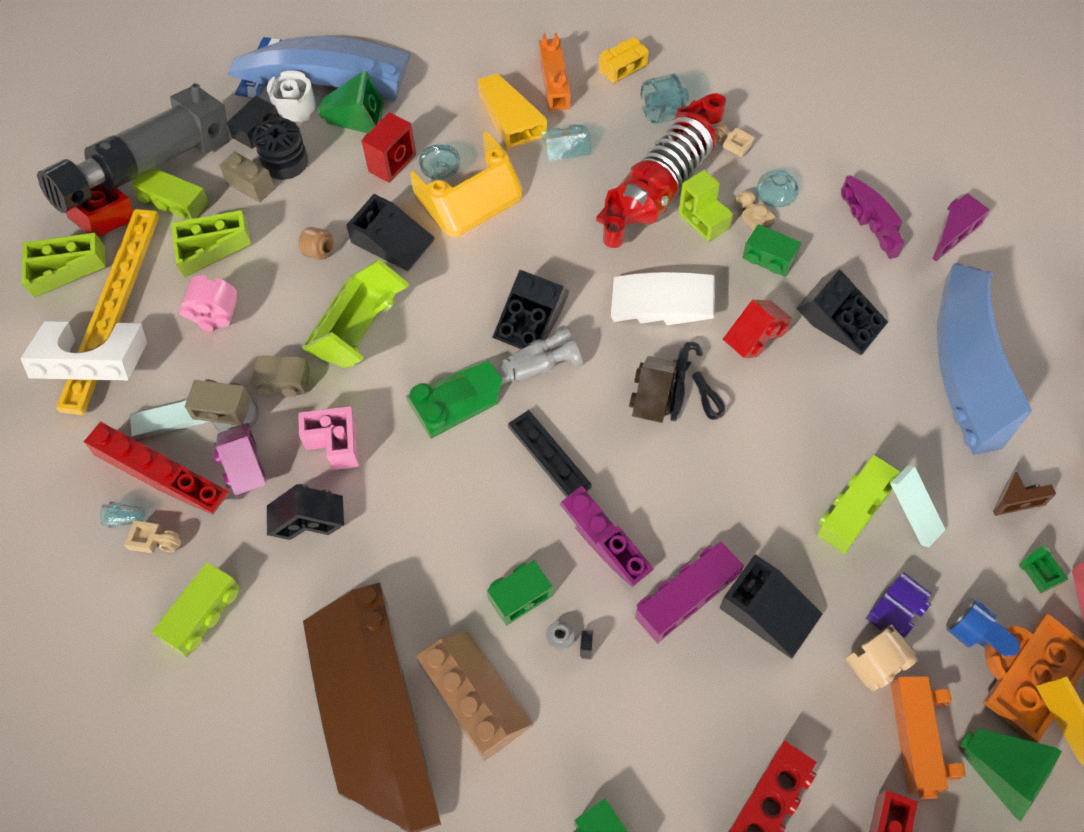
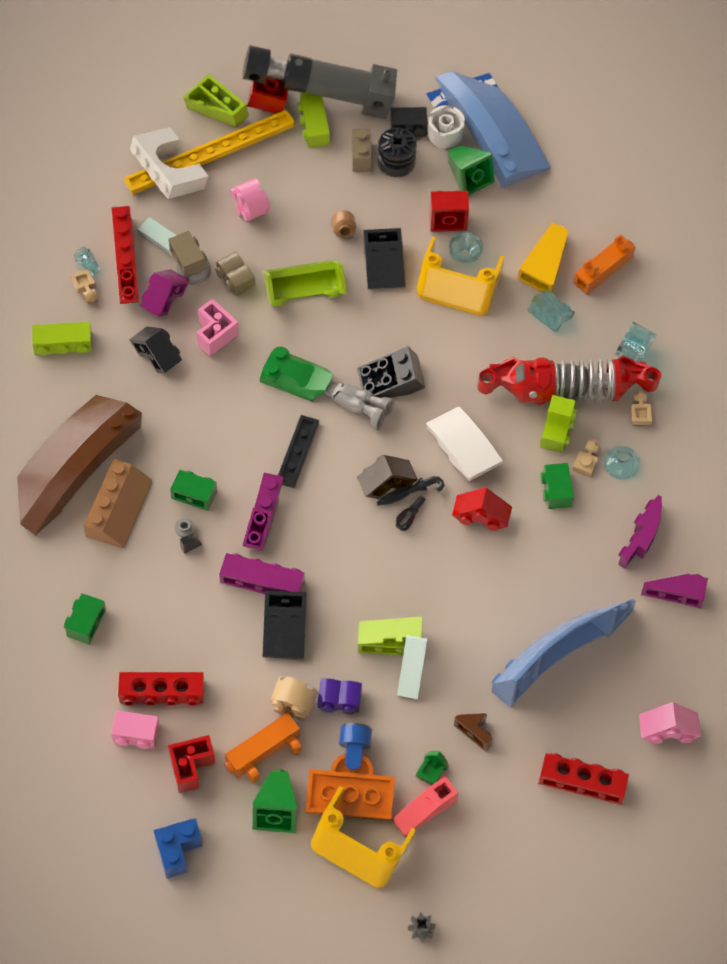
camera: 50 degrees right, 0 degrees up
(208, 240) = (295, 165): lime wedge -> none
(623, 59) = (656, 298): yellow brick -> none
(842, 312) = (540, 557): black slope -> none

